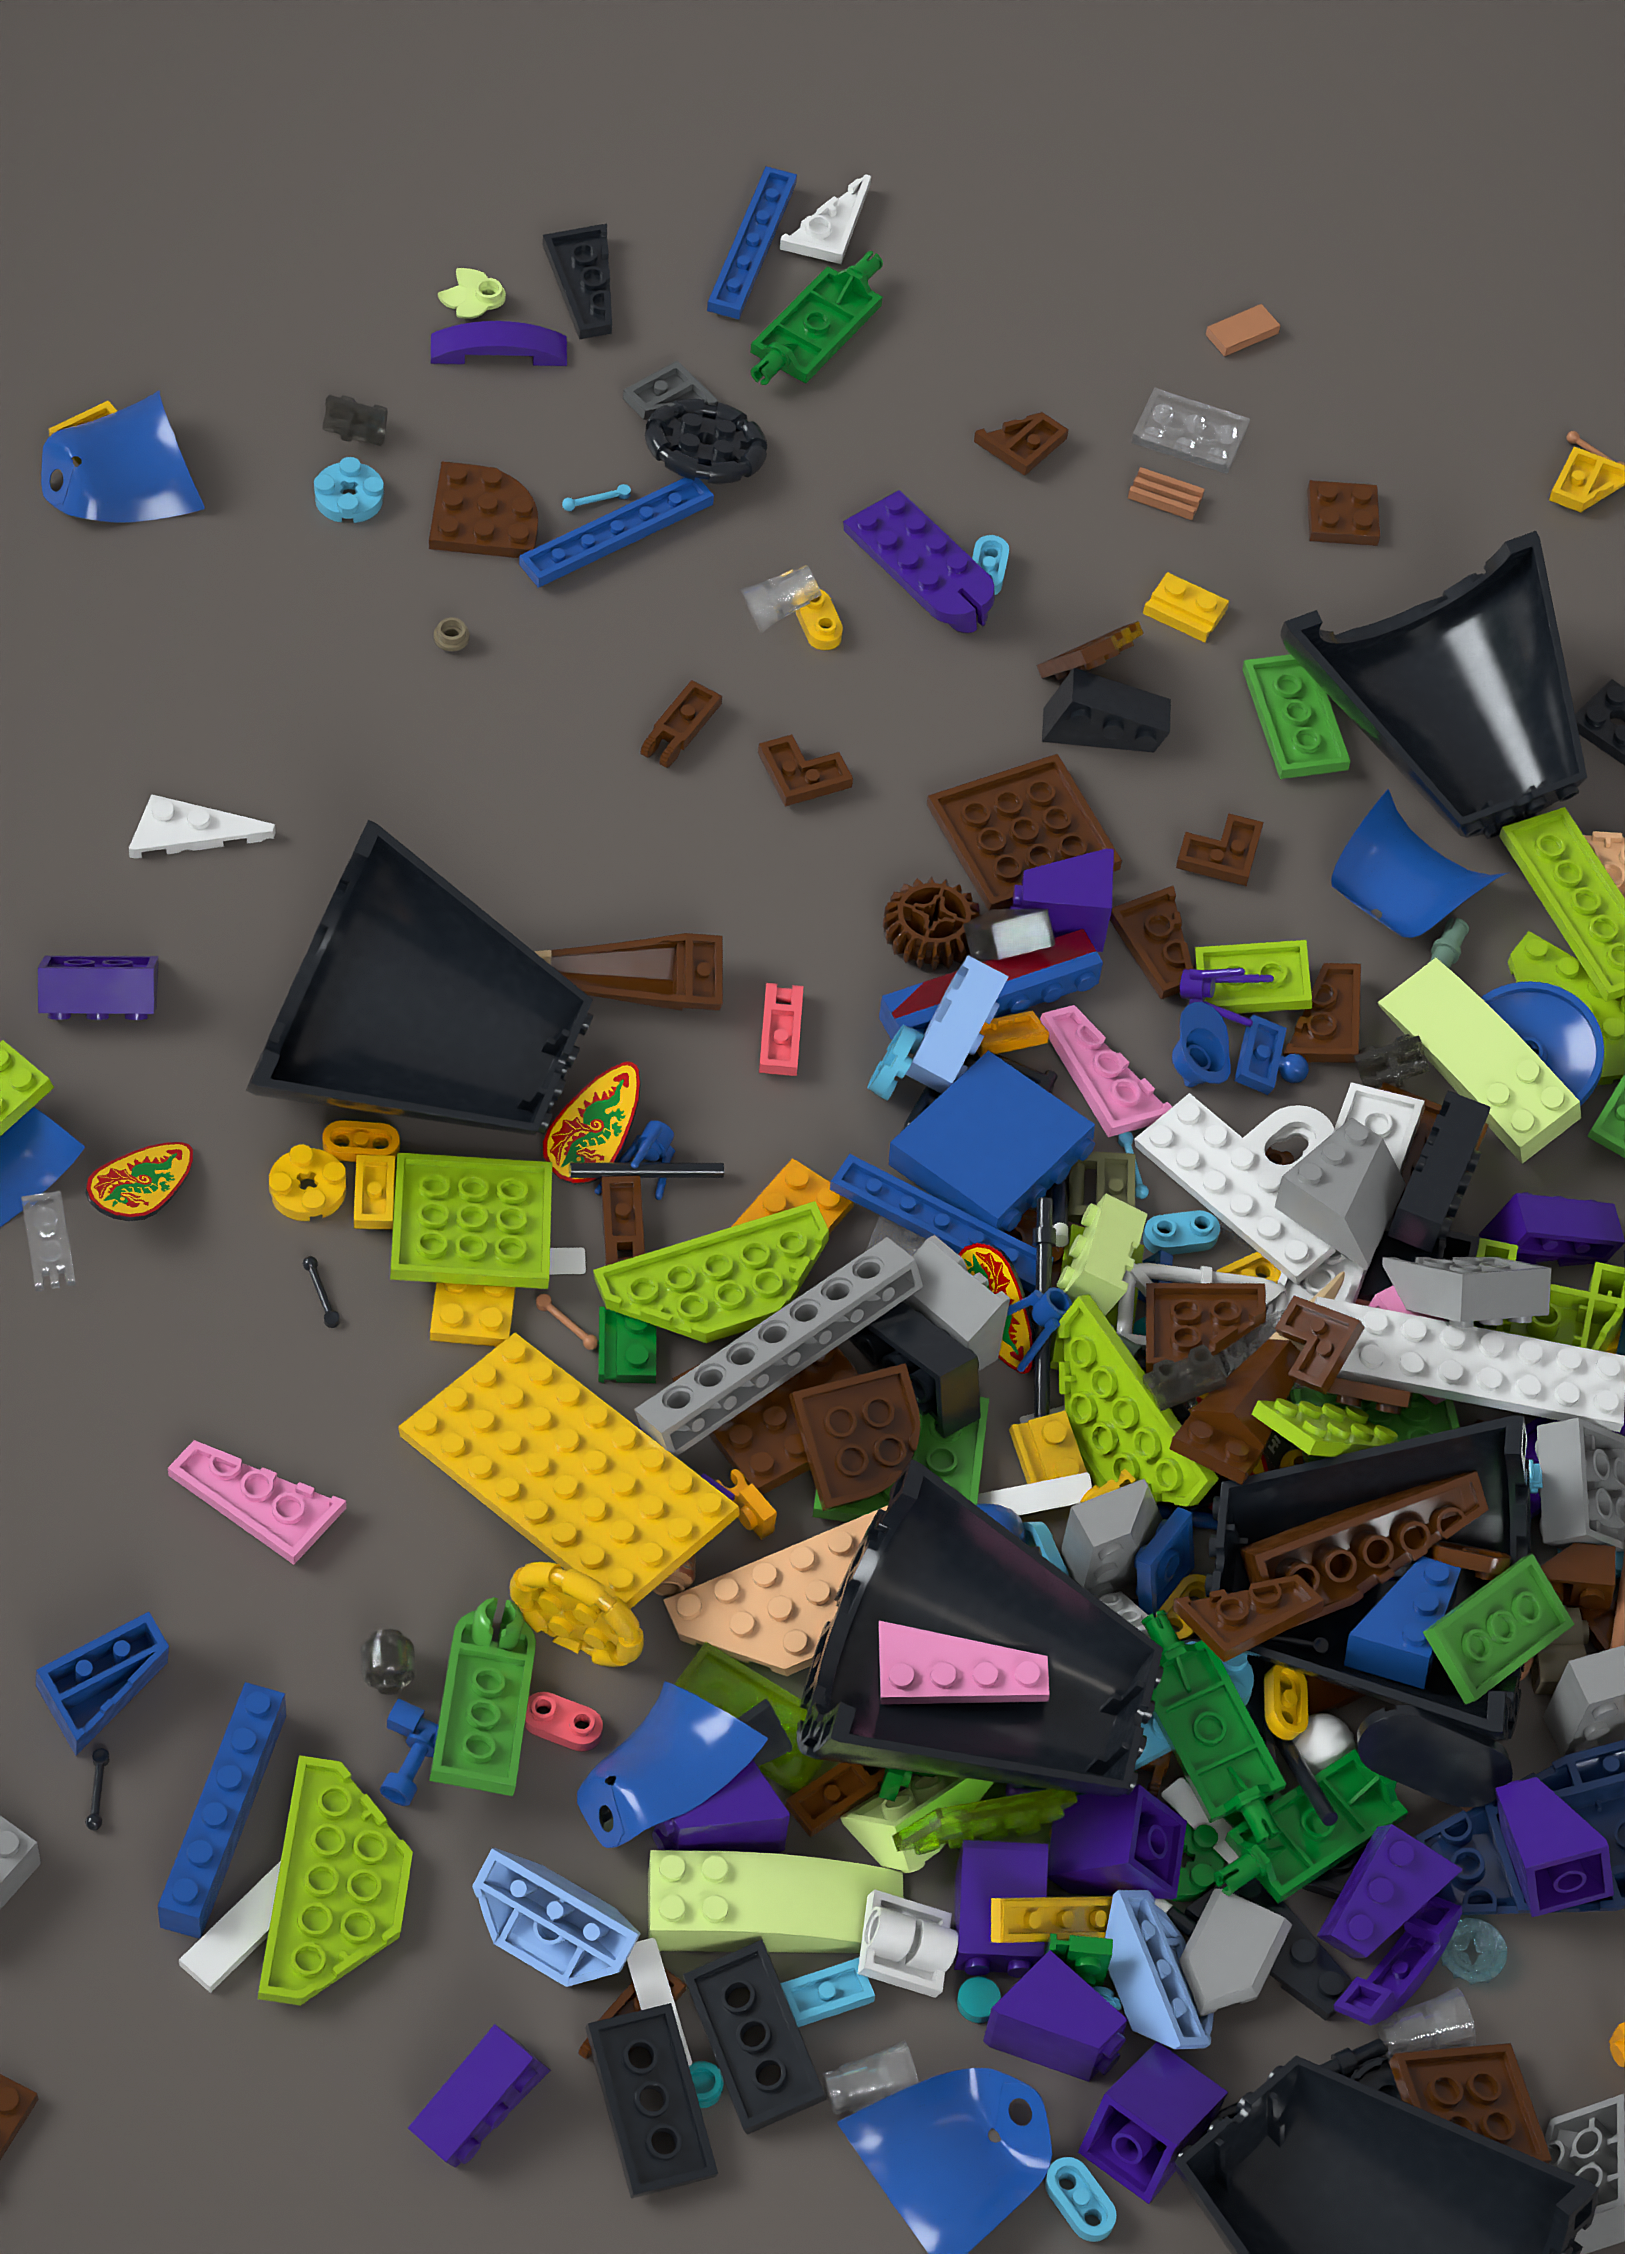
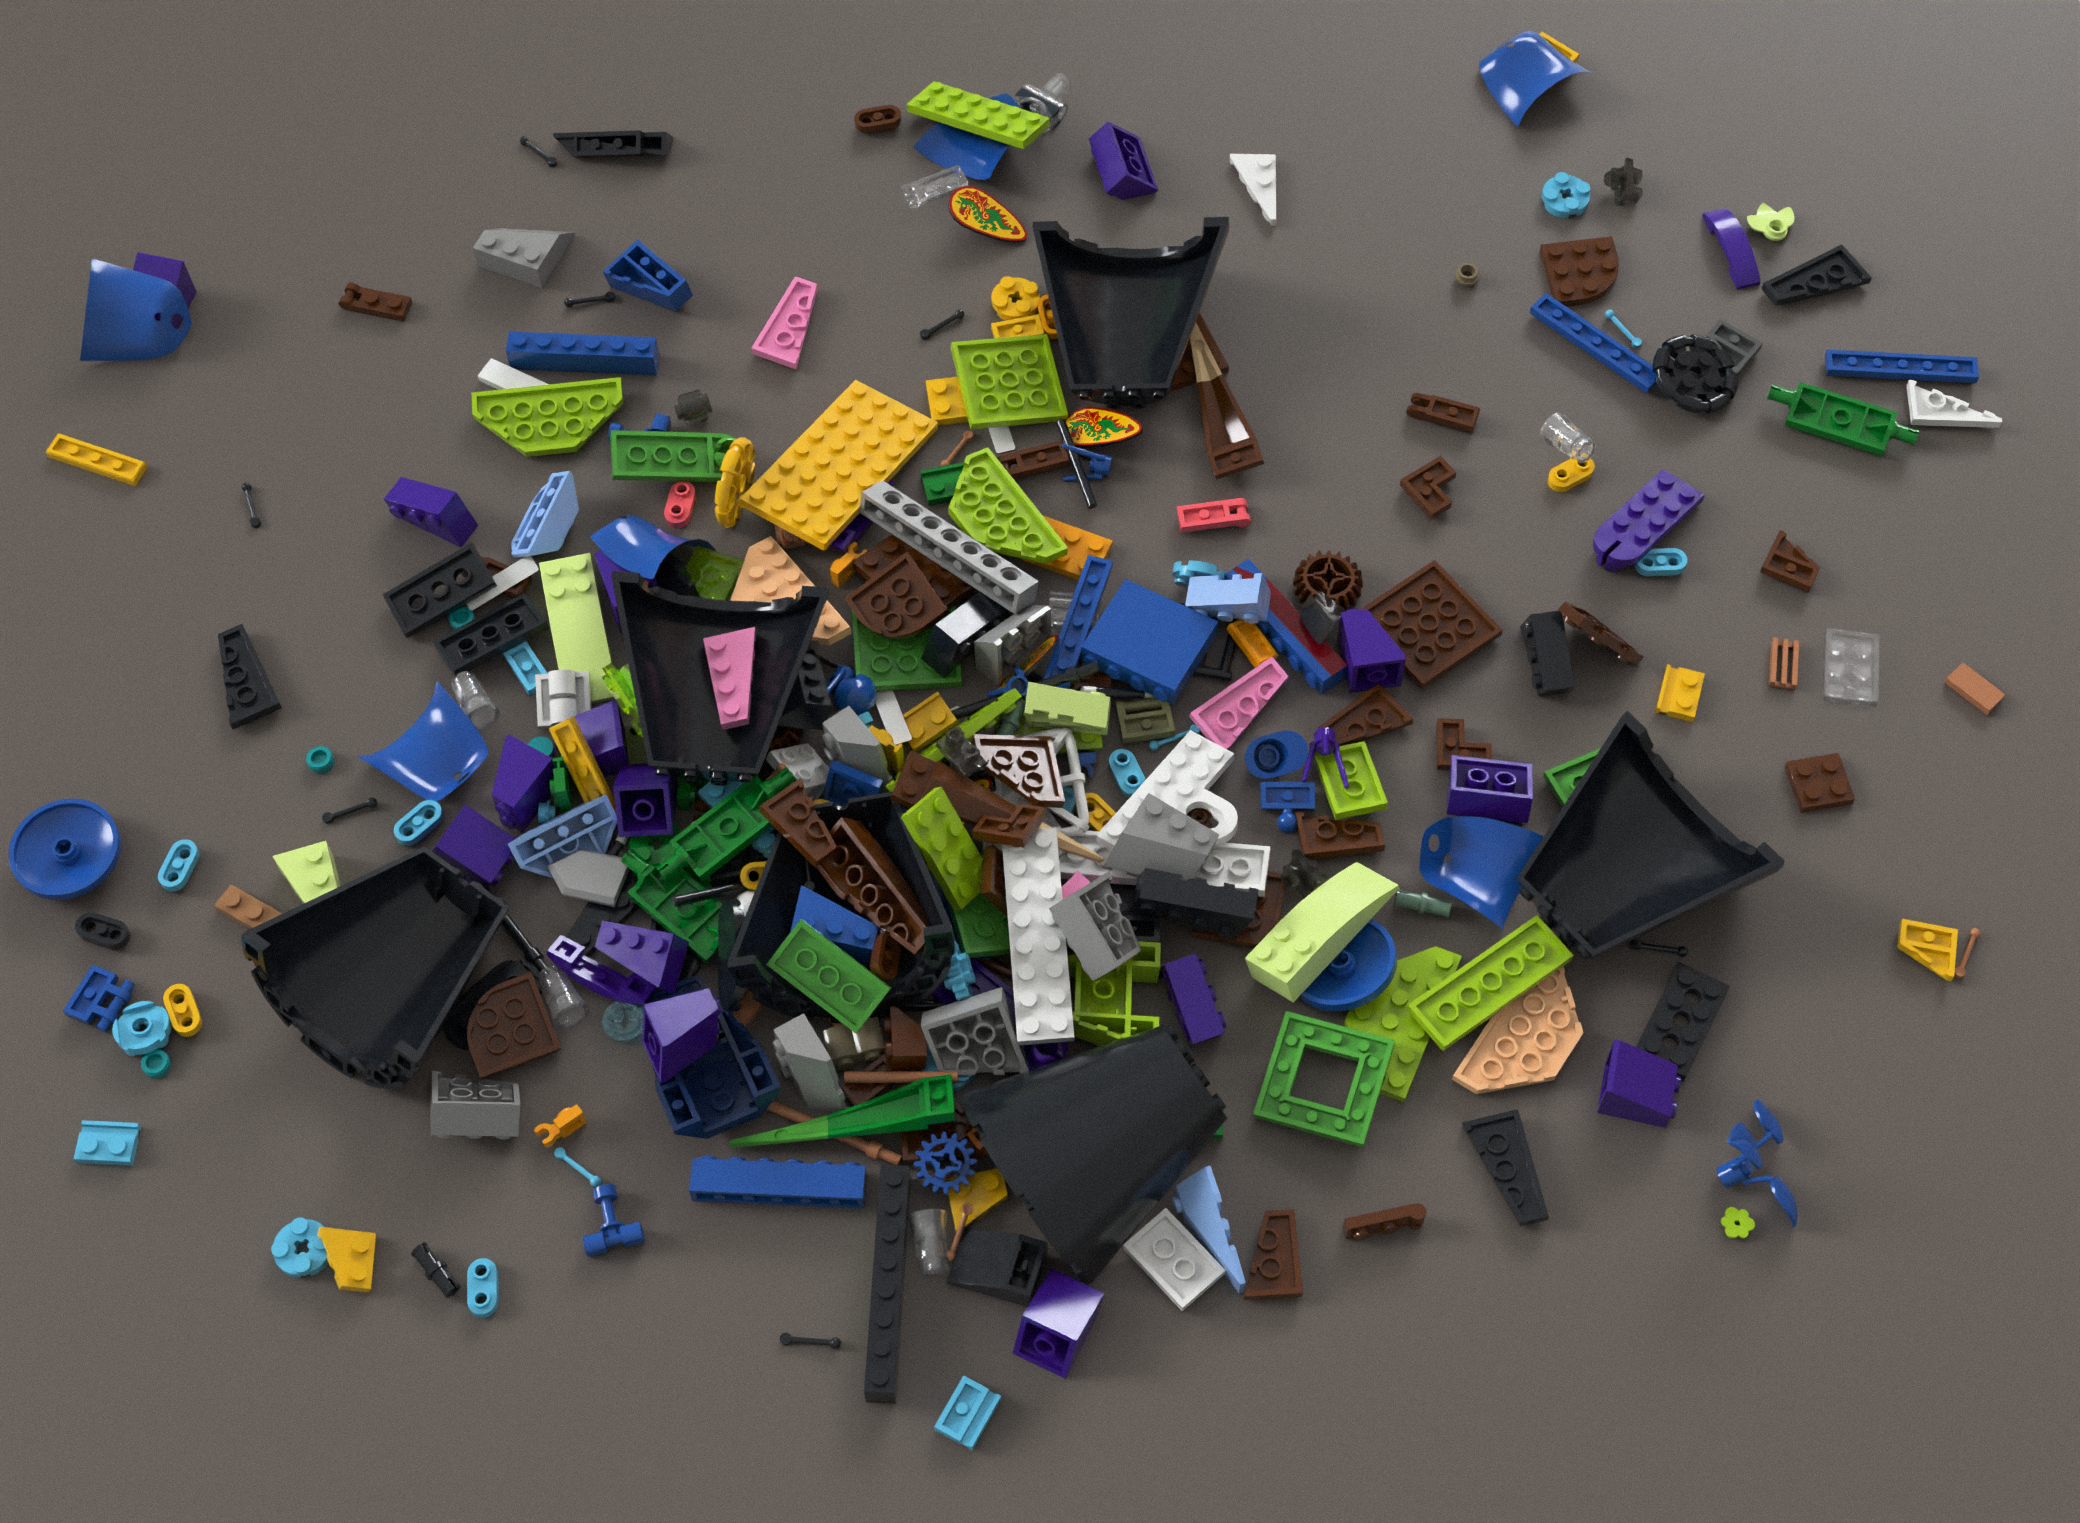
camera: 85 degrees right, 5 degrees up
(1299, 830) = (1490, 789): none -> dark purple slope

